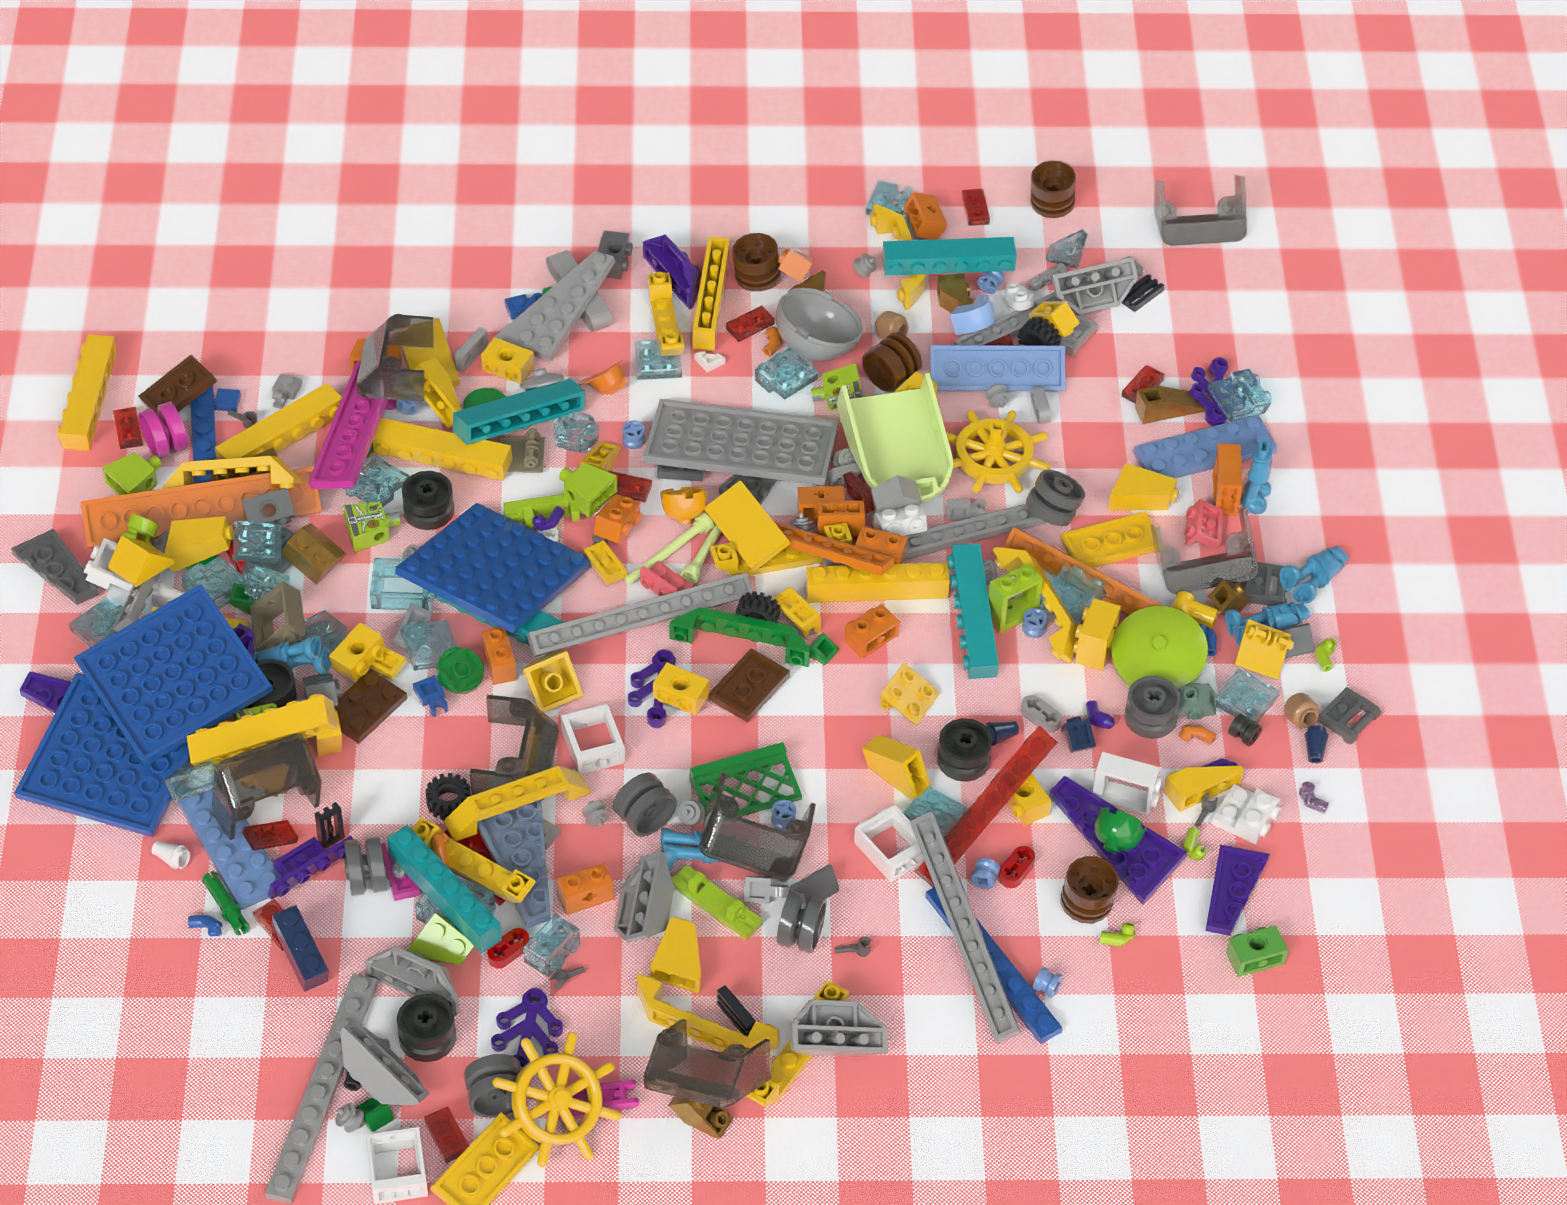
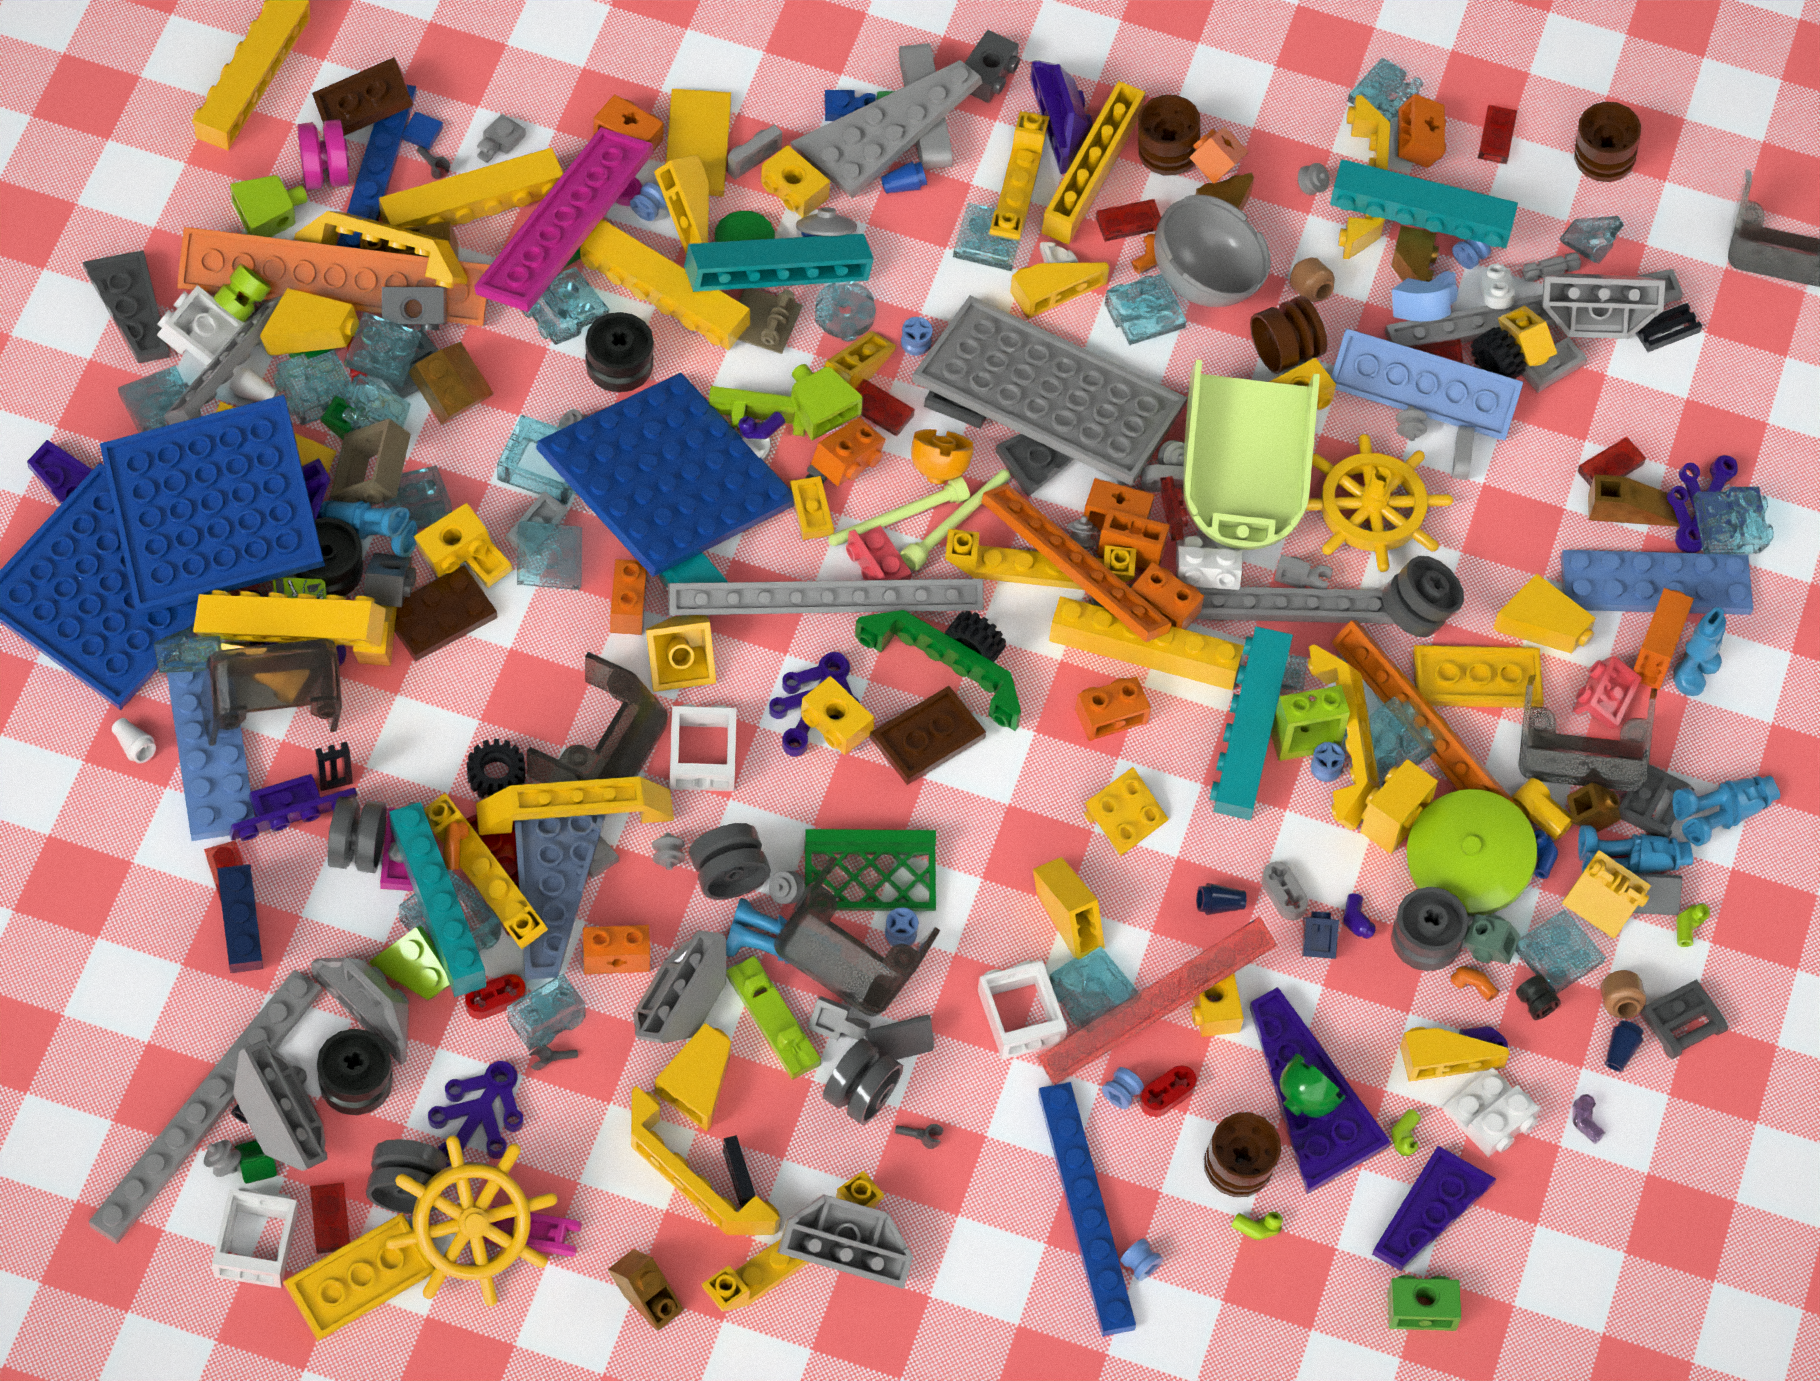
camera: 15 degrees right, 10 degrees up
(127, 428) = (283, 134): clear red plate -> none
(137, 560) = (225, 332): yellow slope -> none
(206, 921) = (146, 845): blue arm -> none
(230, 910) = (177, 837): green pin -> none
(270, 835) = (260, 754): clear red plate -> none
(368, 524) = (534, 363): lime torso -> none
(383, 375) = (617, 163): clear smoke windscreen -> none
(430, 692) = (526, 622): blue plate -> none
(460, 670) = (573, 602): green tile -> none
(583, 339) = (906, 178): none -> blue cone
(607, 381) = (911, 248): orange piece -> none
(702, 1073) = (656, 1254): clear smoke windscreen -> none
(715, 376) = (1053, 284): none -> yellow slope
(747, 526) = (1006, 514): yellow tile -> none
(799, 611) = (1027, 653): yellow hinge -> none
(822, 649) = (1041, 713): green slope -> none
(832, 384) = (1212, 345): lime torso -> none
(895, 493) = (1214, 530): light grey slope -> none
(964, 749) = (1163, 911): pearl dark grey wheel -> none
(965, 928) = (1064, 1155): light grey plate -> none
(1123, 795) = (1349, 1026): white window -> none
(1207, 807) = (1445, 1087): dark grey hand -> none

